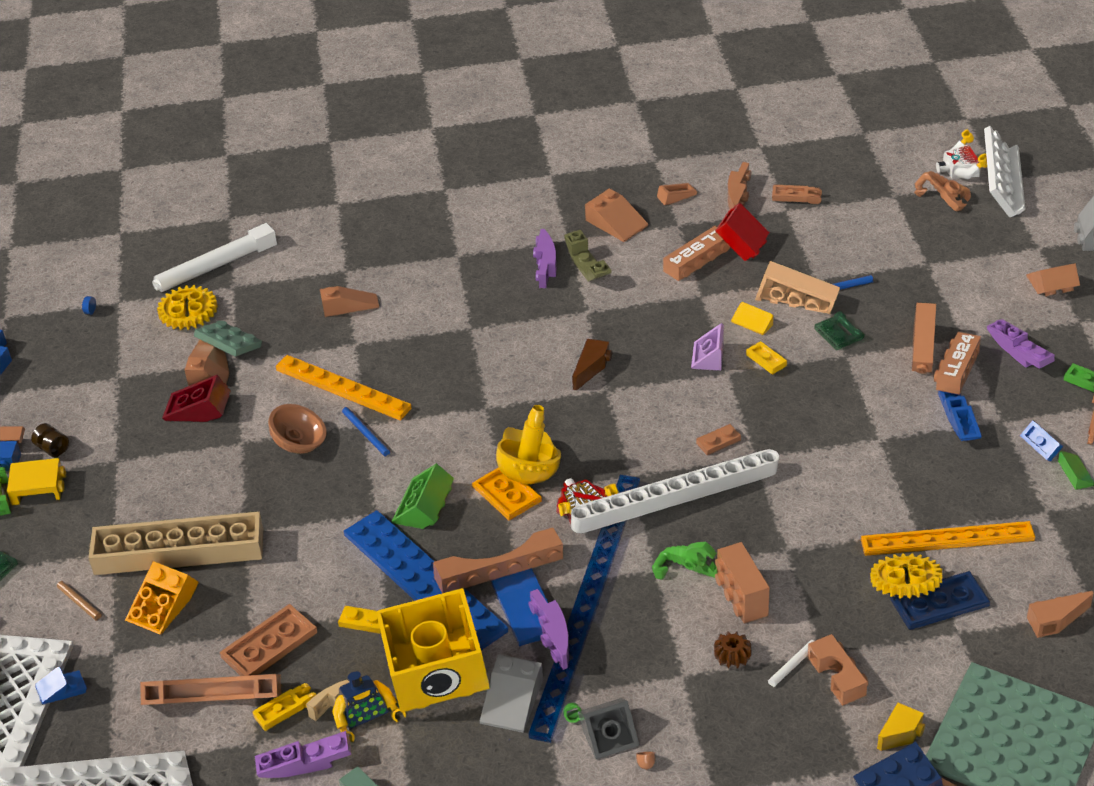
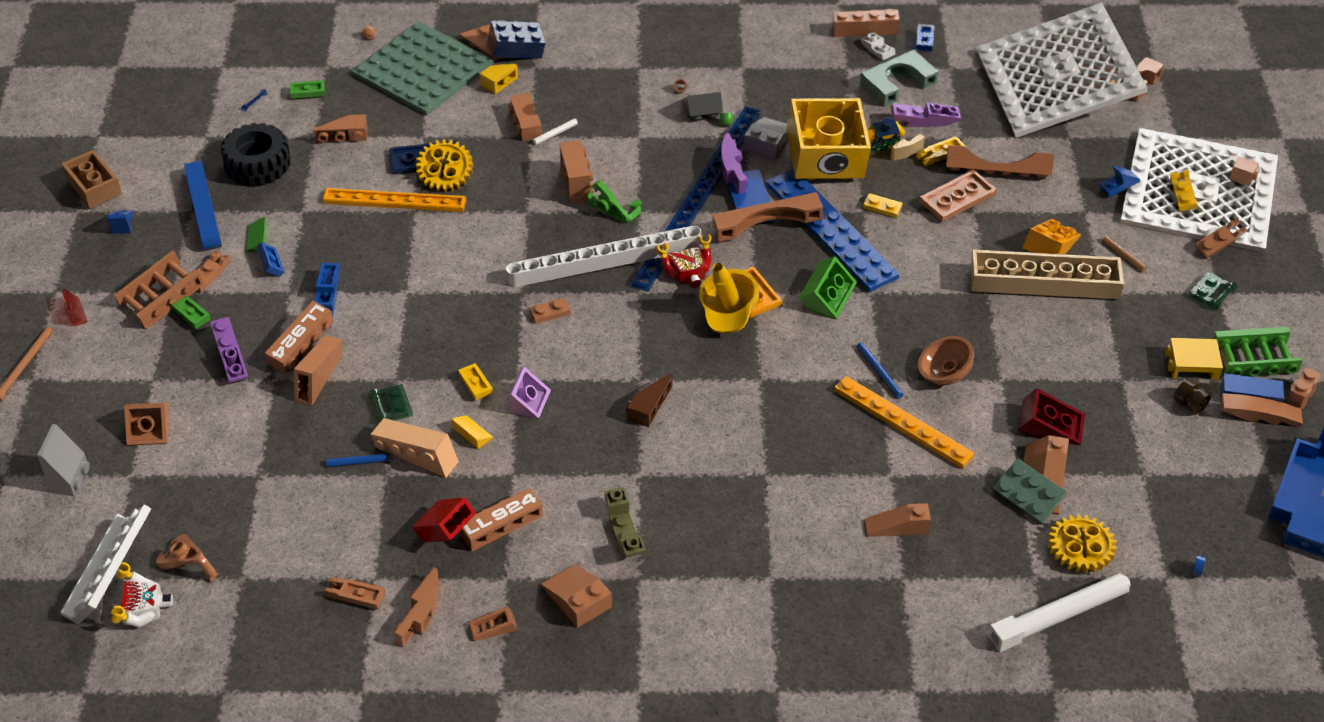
camera: 175 degrees left, 5 degrees up
(546, 258) = (671, 543): medium lavender slope -> none
(732, 649) = (597, 139): reddish brown gear -> none

